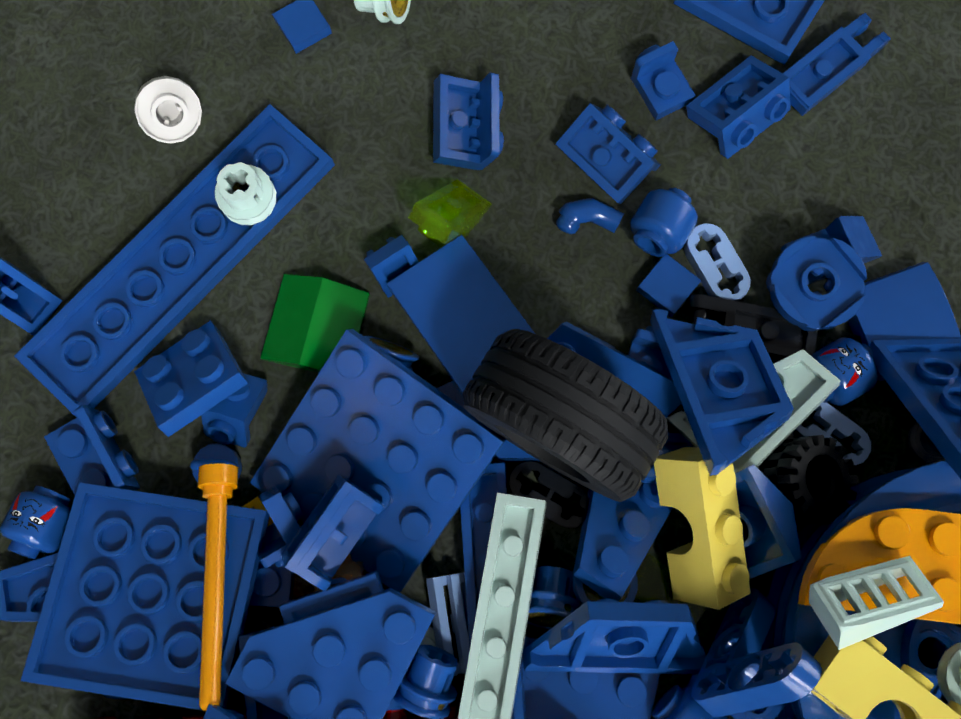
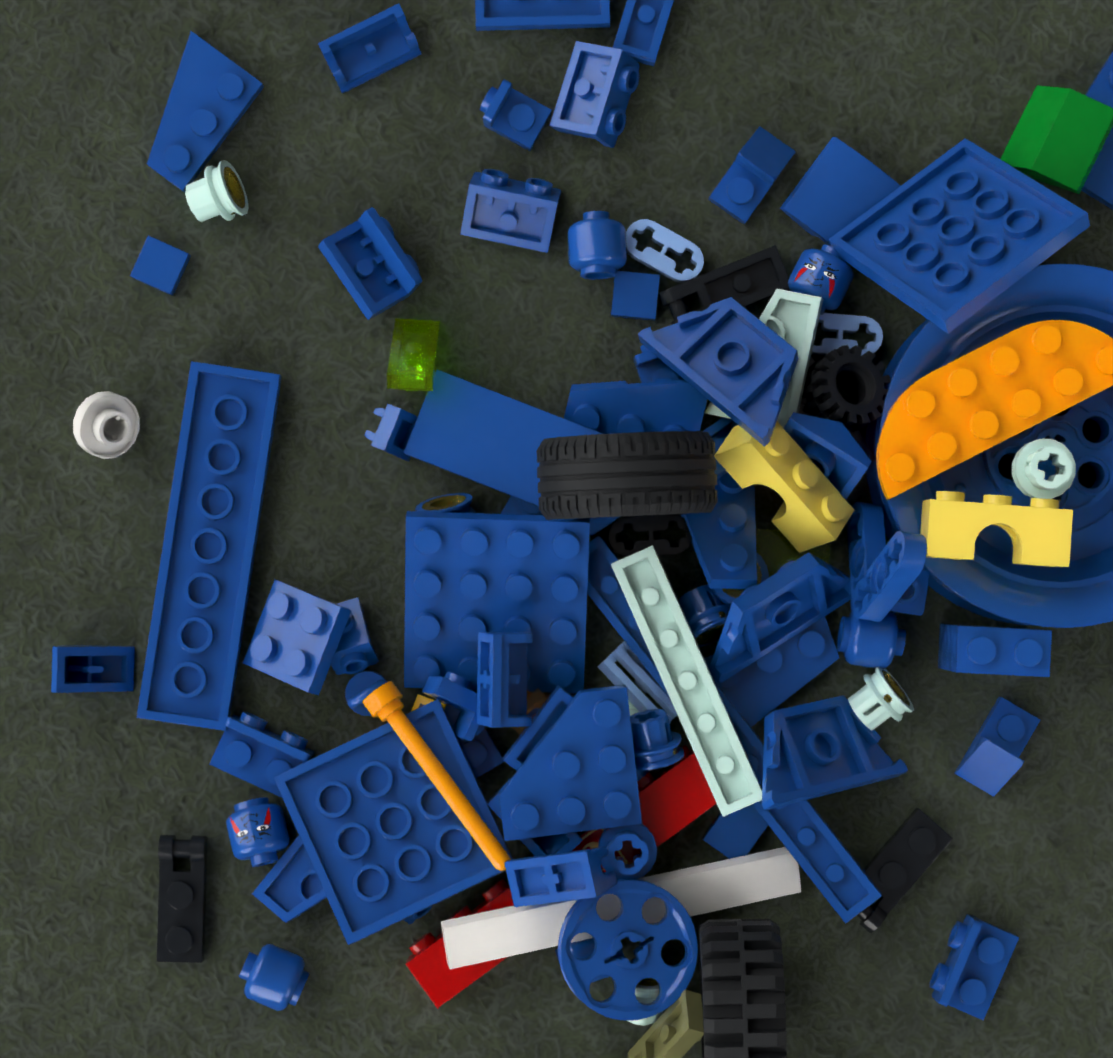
camera: 40 degrees left, 10 degrees up
(242, 206) = (241, 468): light aqua piece -> none
(311, 320) = (361, 524): green slope -> none
(586, 211) = (525, 276): blue arm -> none
(819, 256) = (778, 209): blue plate -> none
(850, 629) = (928, 495): light aqua slope -> none

